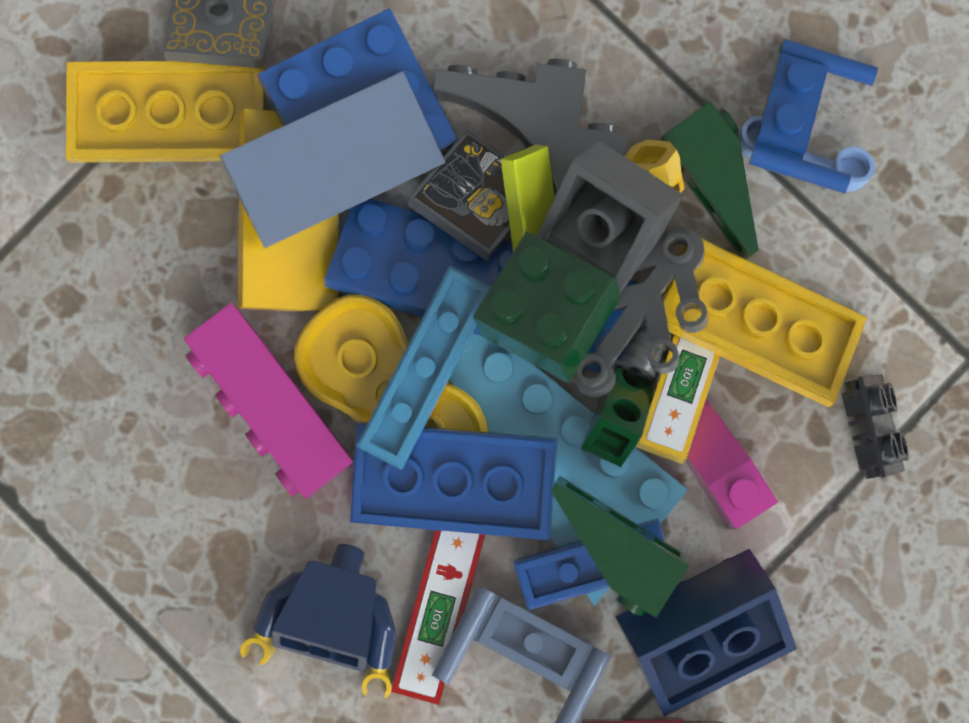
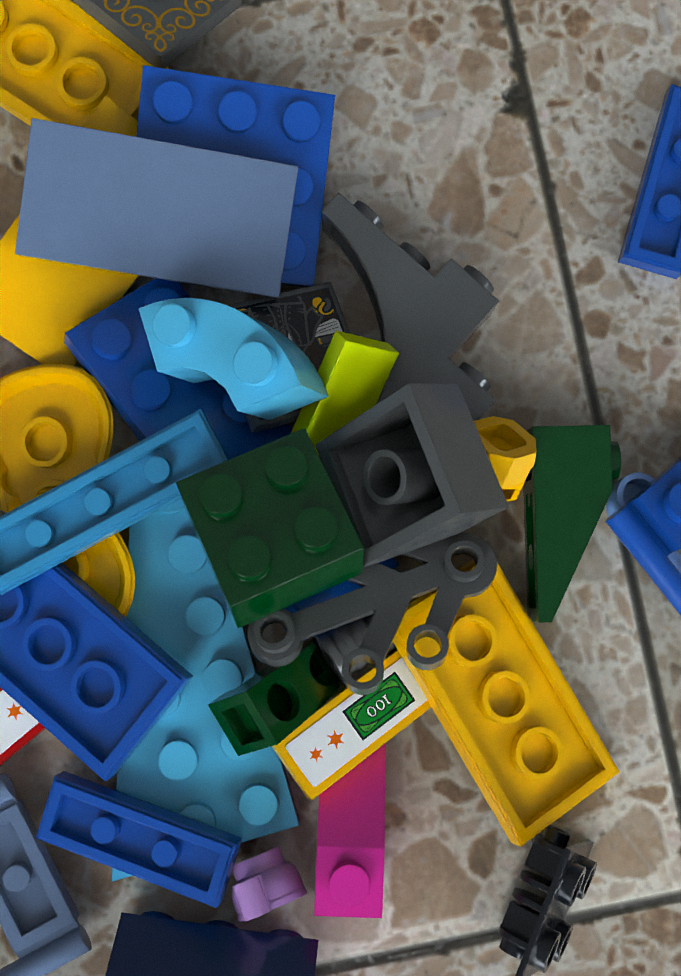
camera: 30 degrees right, 0 degrees up
(447, 212) = (250, 359): none -> medium azure brick
(628, 556) = (171, 864): dark green slope -> none
(694, 537) = (264, 884): none -> lavender piece

